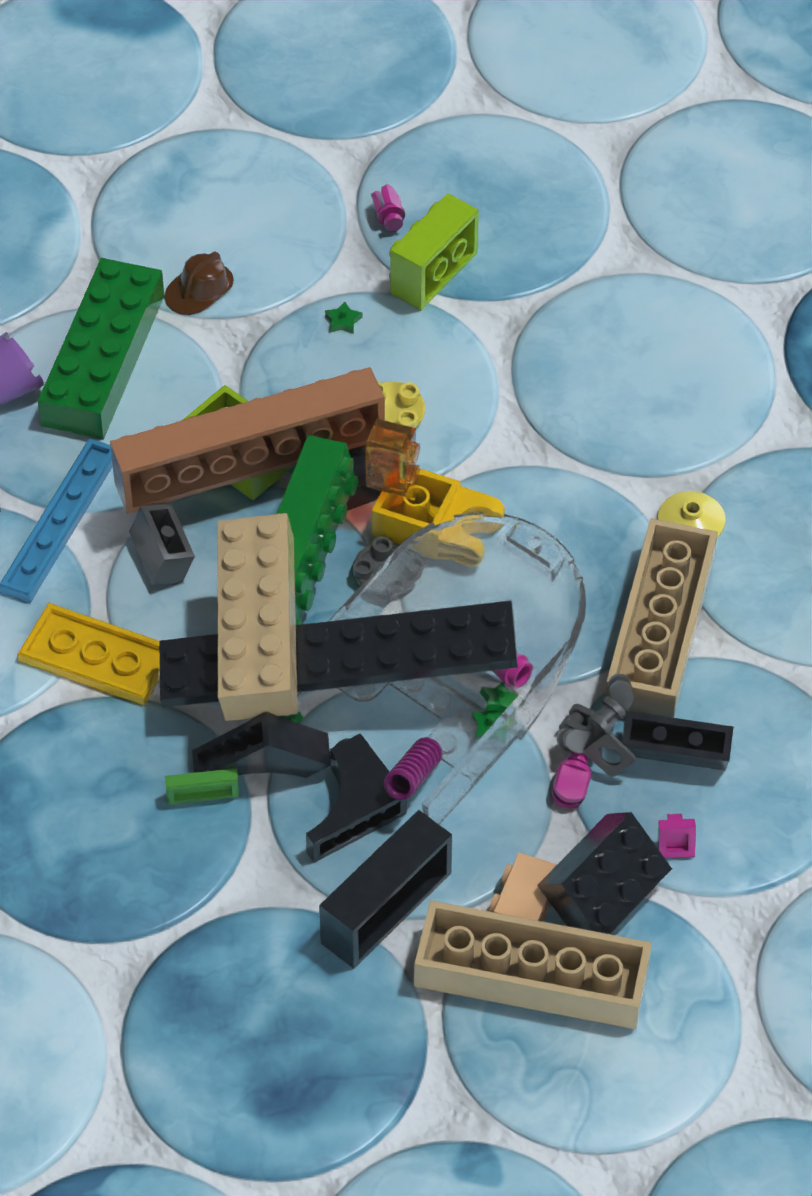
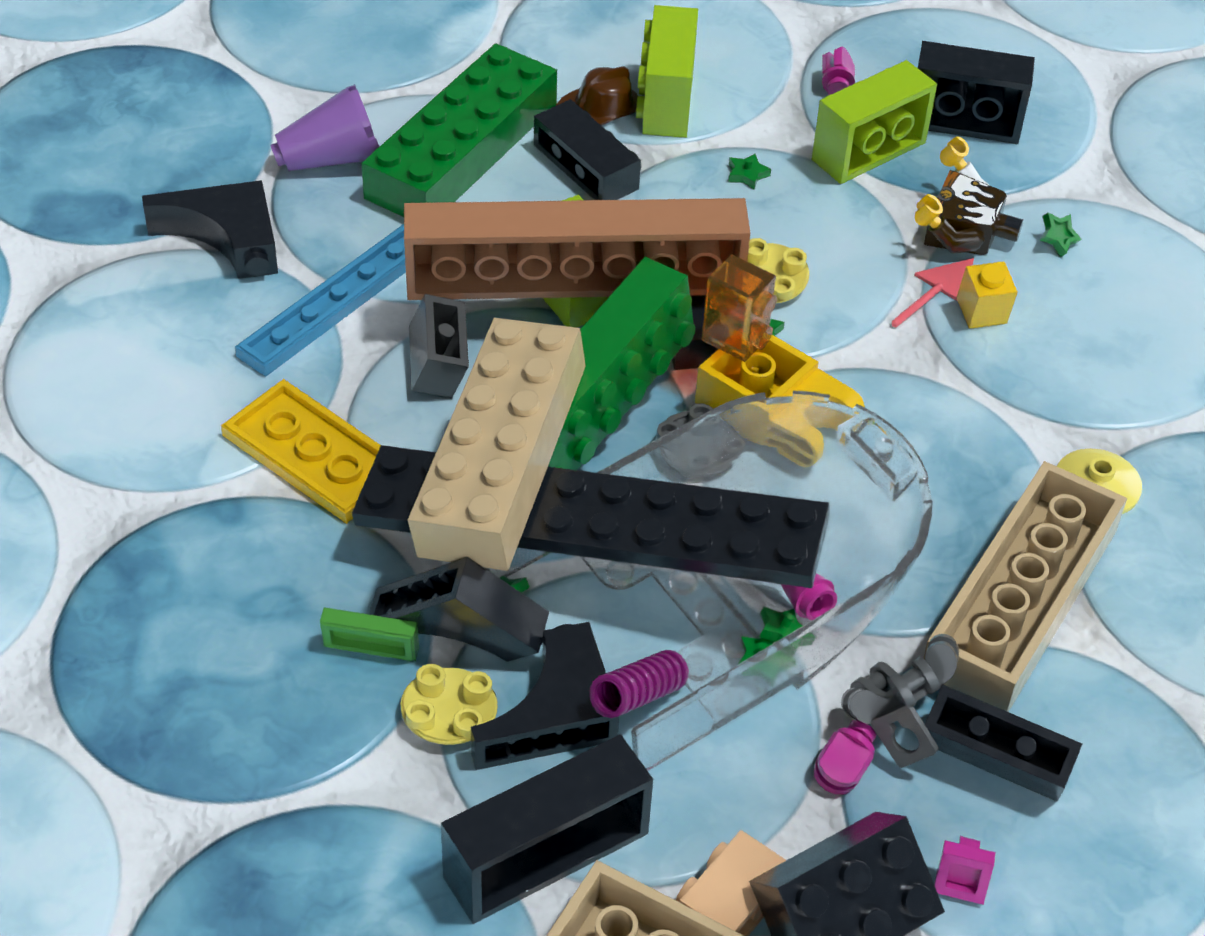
camera: 15 degrees right, 5 degrees down
(210, 338) = (586, 152): none -> black brick
(253, 246) = (667, 71): none -> lime brick
(278, 821) = (447, 702): none -> light yellow dish
(509, 200) = (977, 91): none -> black brick
(530, 311) = (967, 208): none -> torso
(530, 375) = (943, 279): none -> coral piece
(567, 384) = (986, 294): none -> yellow brick
(607, 312) = (1059, 232): none -> green piece

